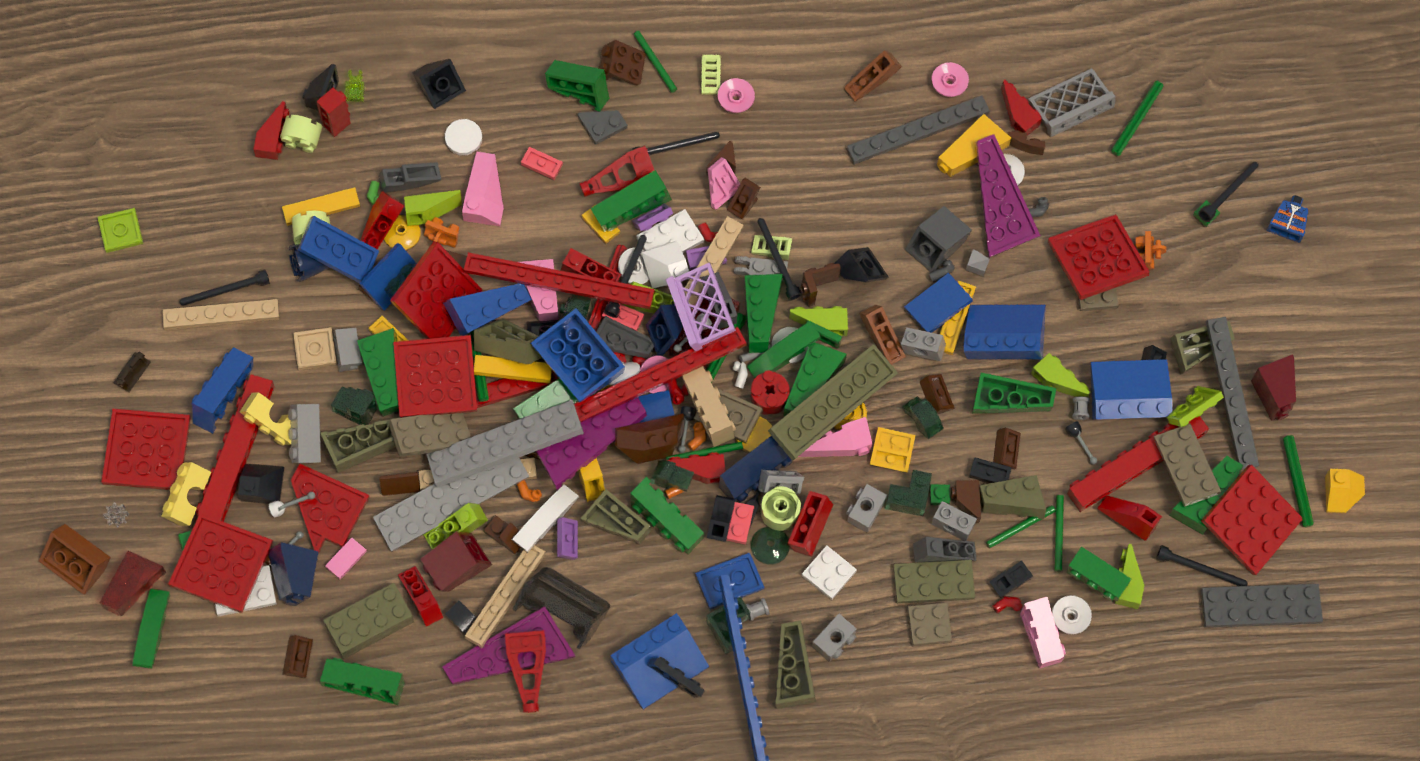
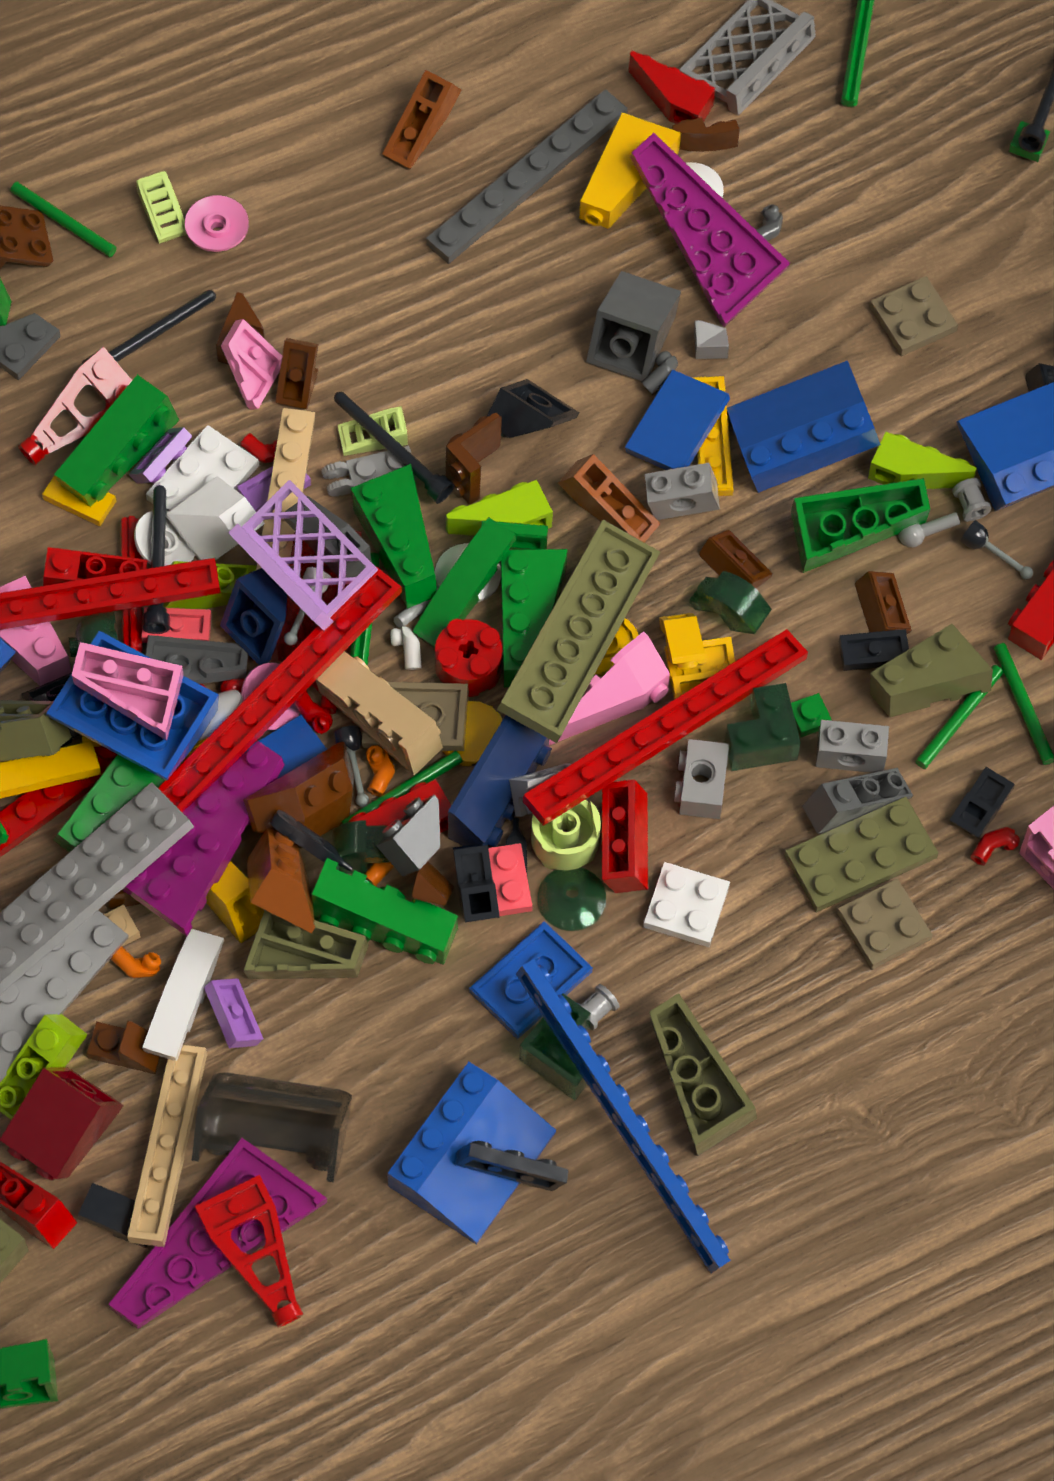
camera: 20 degrees left, 5 degrees down
(579, 345) = (130, 684): none -> bright pink wedge
(618, 479) = (280, 880): none -> dark orange slope
(640, 461) = (307, 838): none -> black piece
(697, 482) = (413, 838): none -> slope
(697, 511) = (432, 886): none -> reddish brown slope
(840, 627) = (748, 984): light grey brick -> none
(856, 473) = (664, 727): none -> red plate
(888, 427) = (683, 639): none -> yellow slope
(950, 72) = (548, 73): bright pink dish -> none
(967, 497) = (857, 699): reddish brown slope -> none
(1041, 416) = (914, 534): none -> light grey bar
(1098, 257) = (895, 262): red plate -> none
(1150, 249) = (958, 215): orange hips -> none

